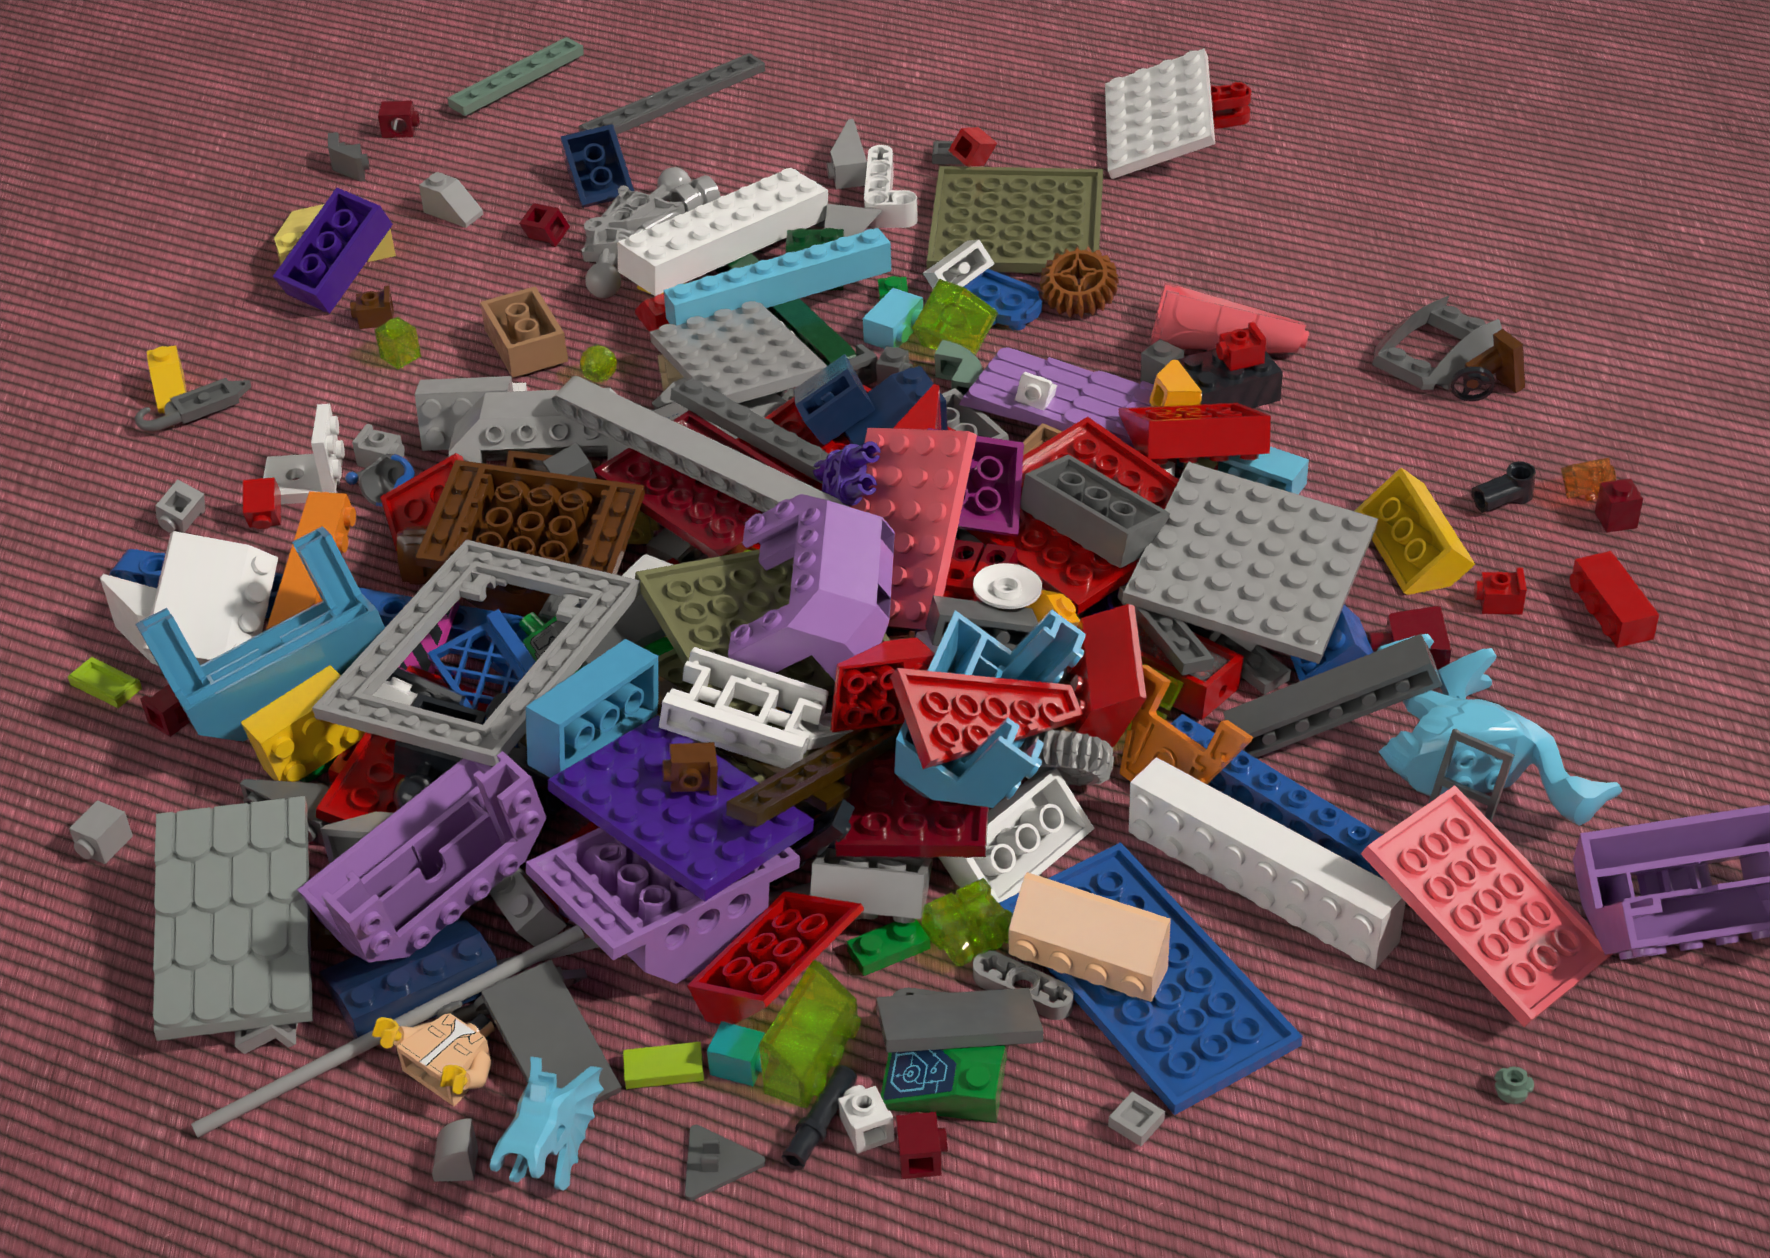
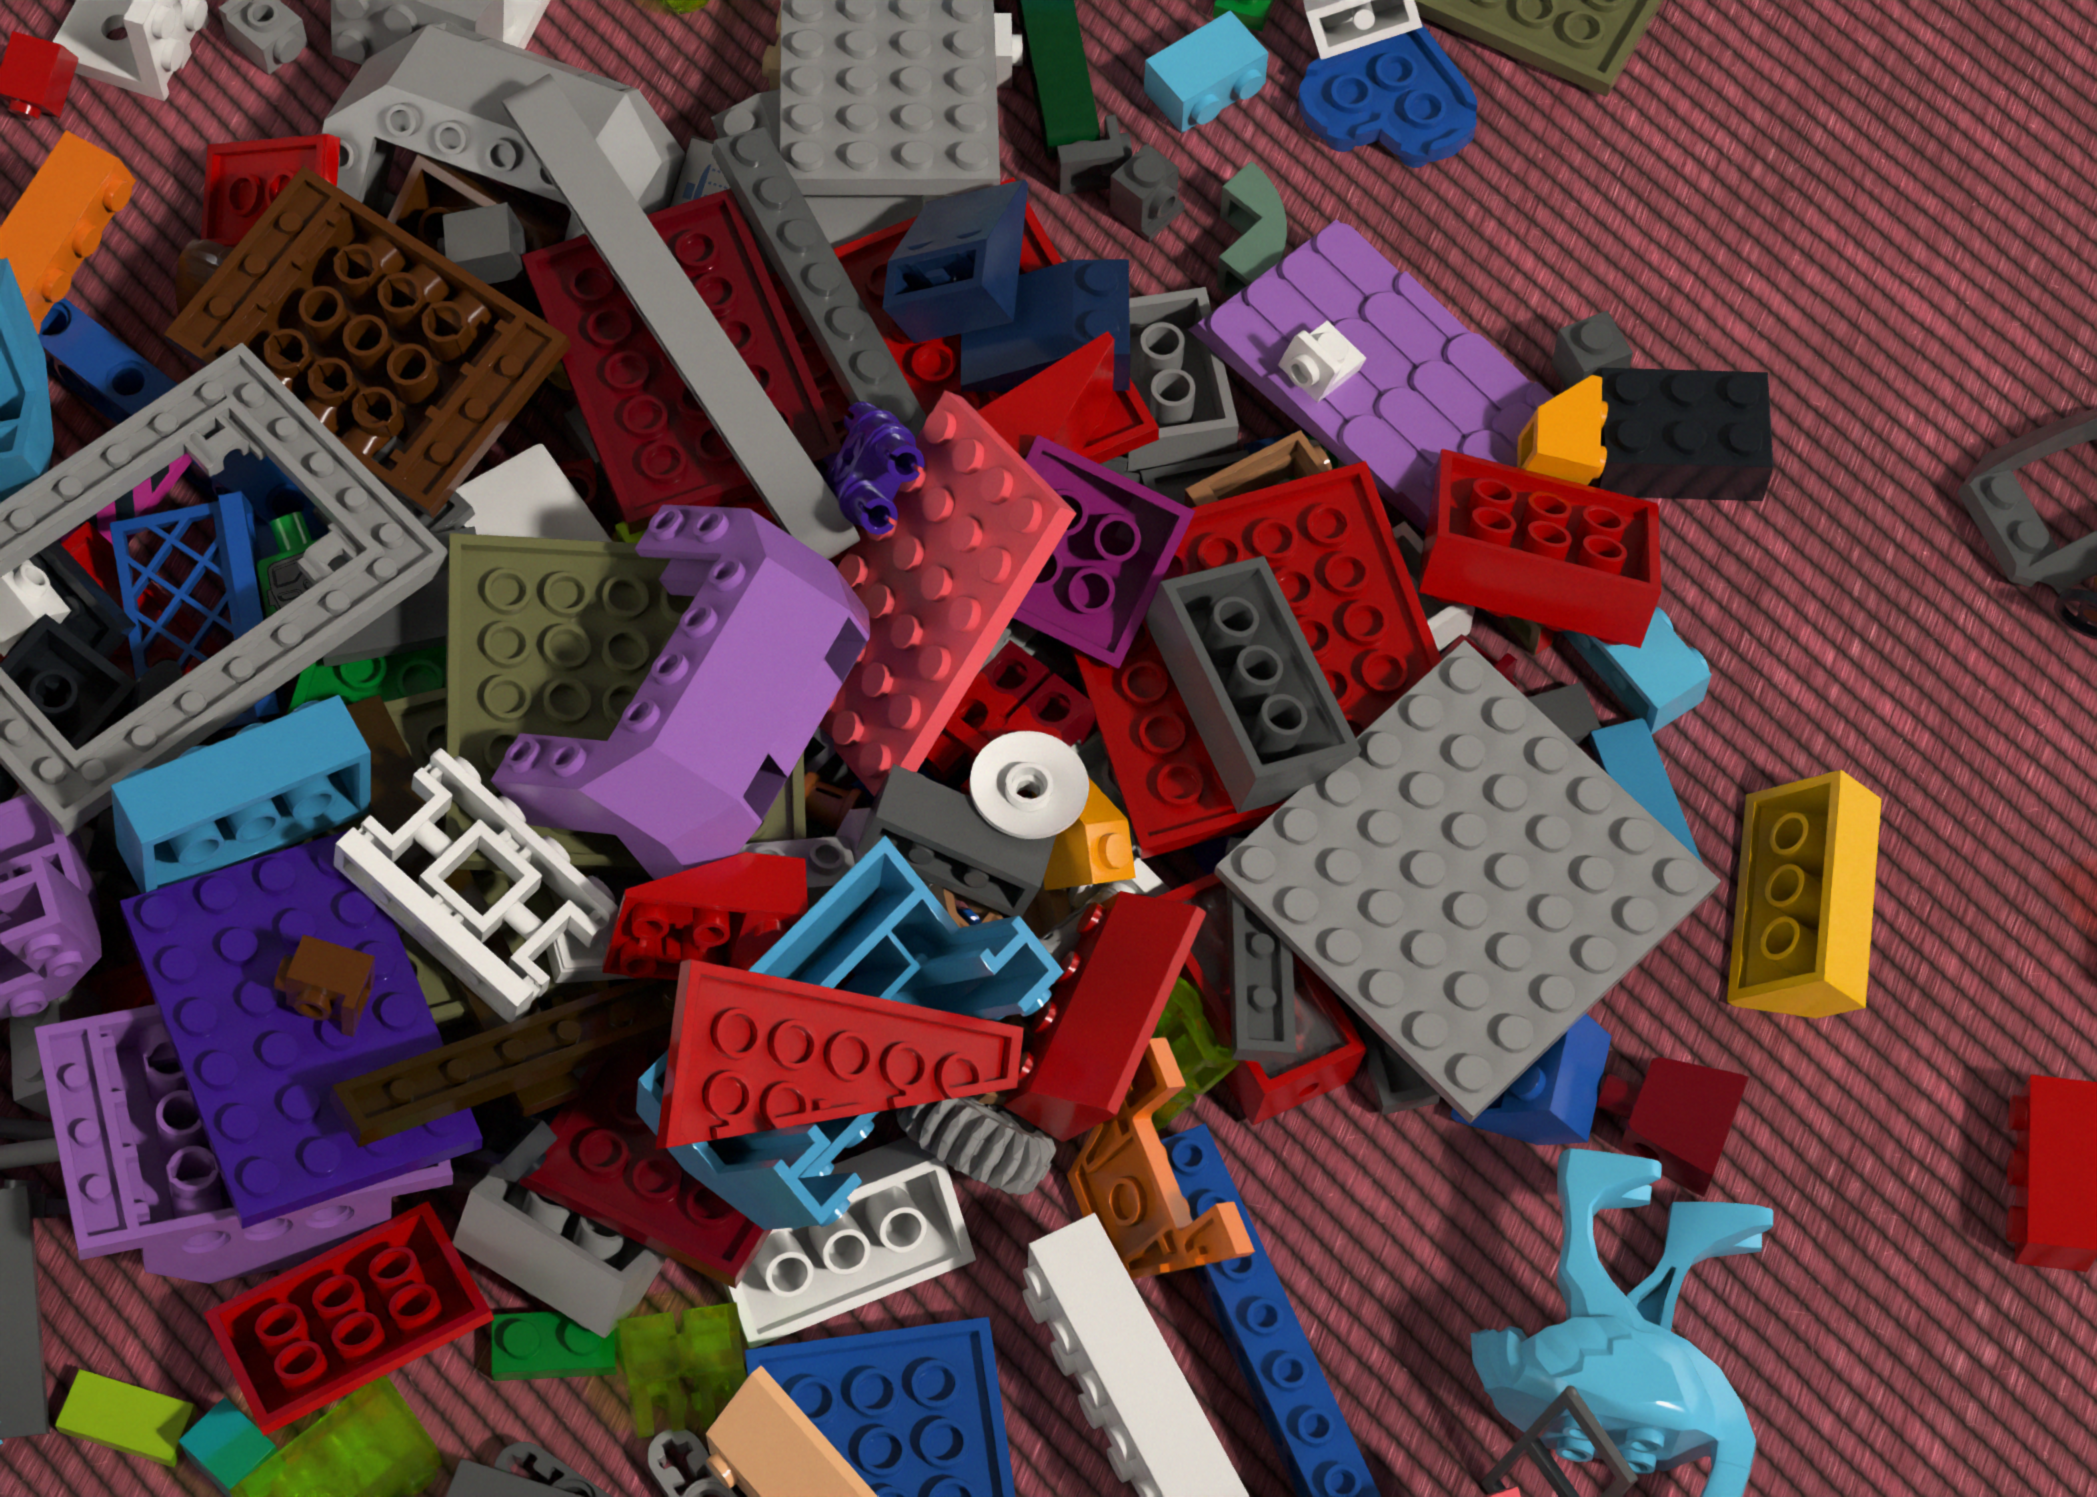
camera: 20 degrees right, 20 degrees up
(382, 477) = (244, 102): dark grey piece -> none
(954, 316) = (1294, 126): clear neon green slope -> none
(1096, 286) = (1518, 97): dark orange gear -> none
(1197, 320) = (1736, 303): coral cone -> none
(1242, 347) = (1716, 402): red brick -> none
(1336, 696) = (1447, 1207): dark grey brick -> none
(1501, 592) = (1879, 1094): red brick -> none
(1512, 487) = (2014, 864): black piece -> none

